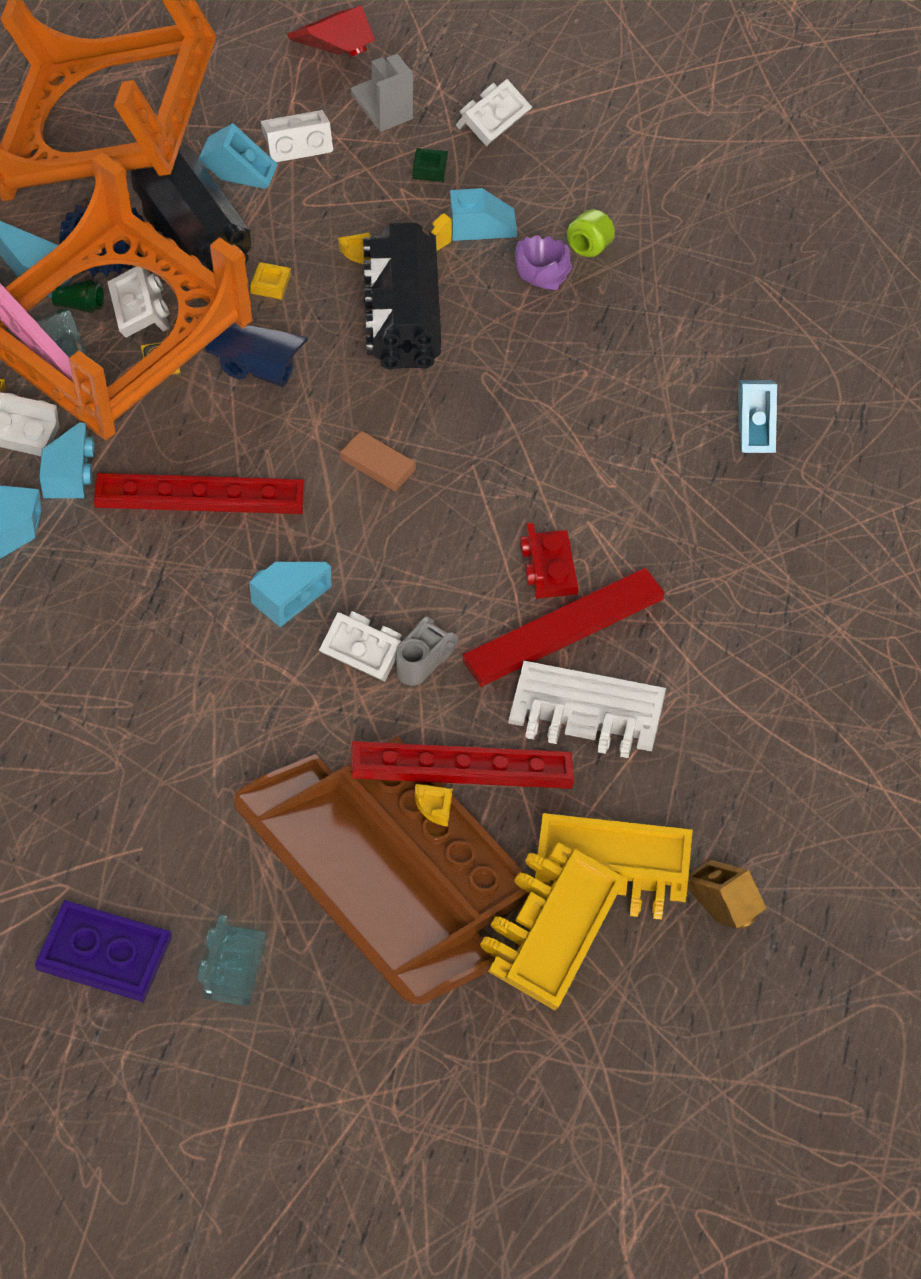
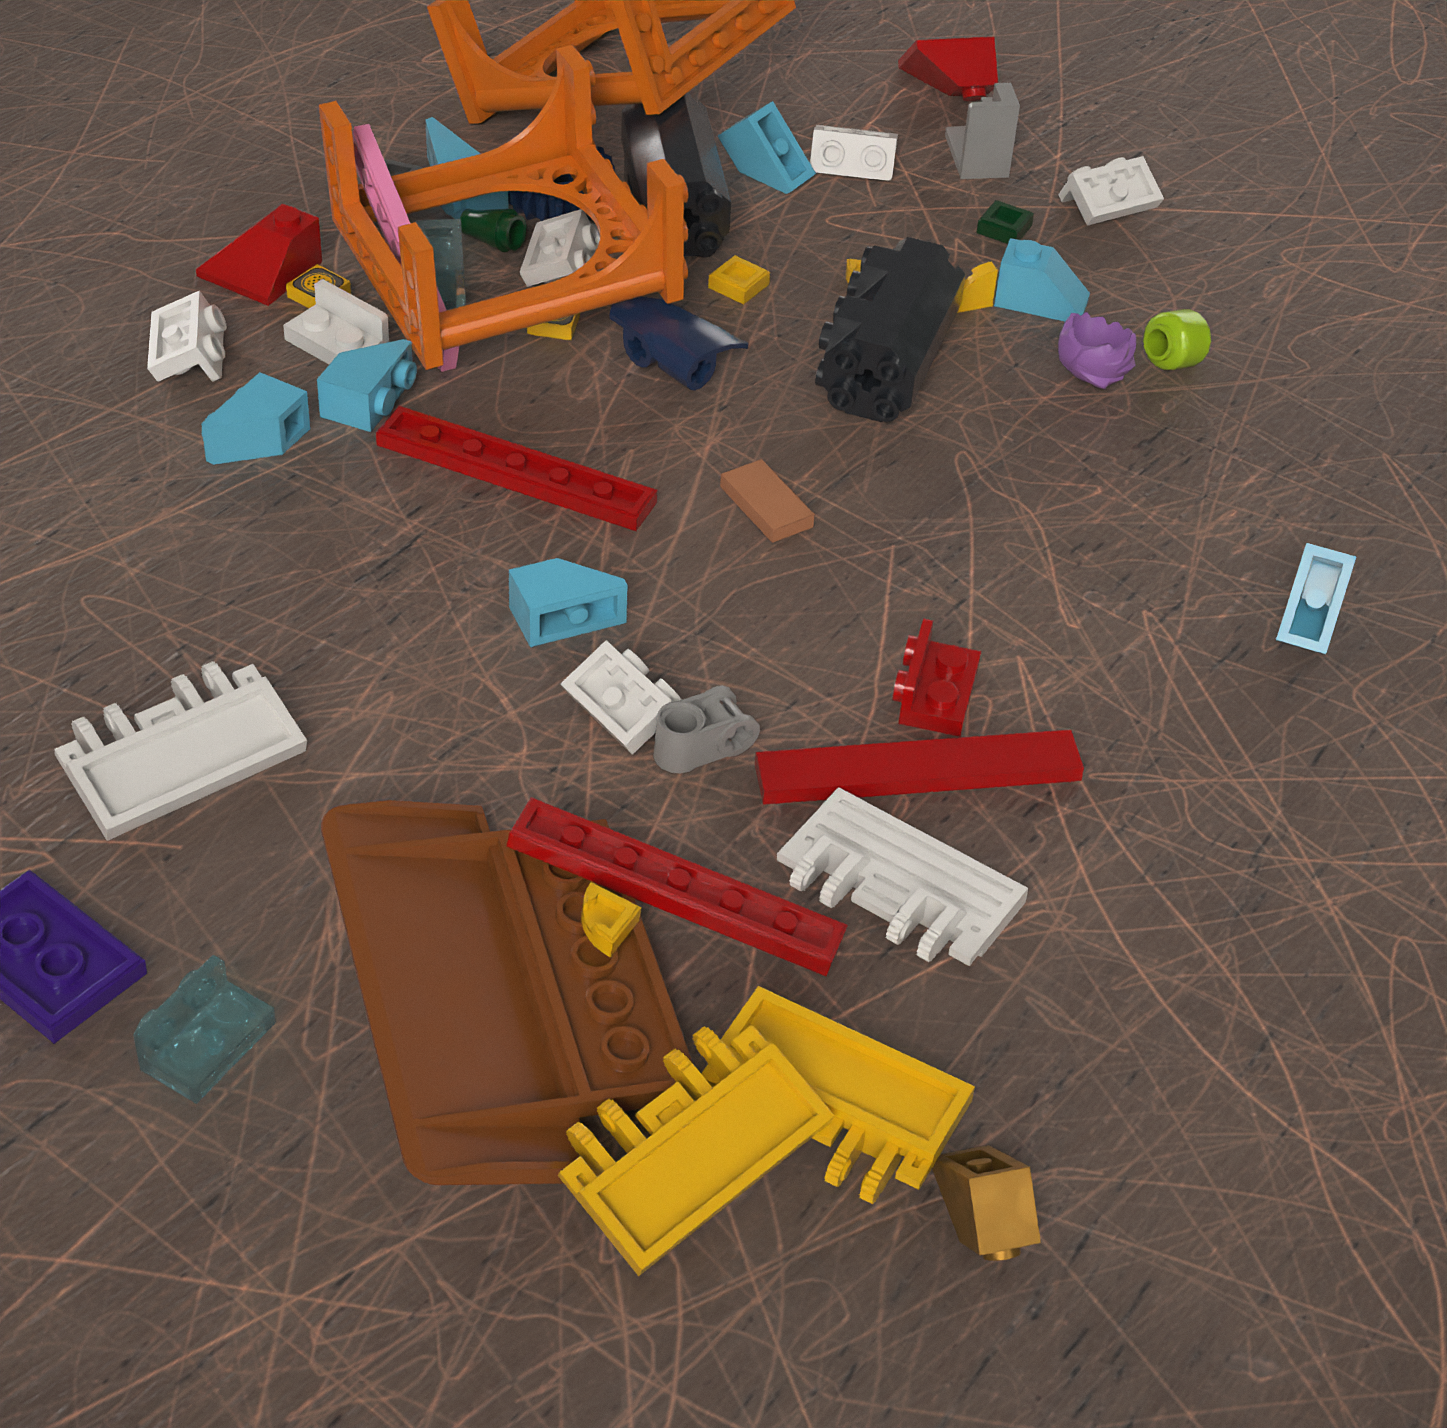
camera: 20 degrees right, 10 degrees down
(110, 782) = (181, 749): none -> white hinge

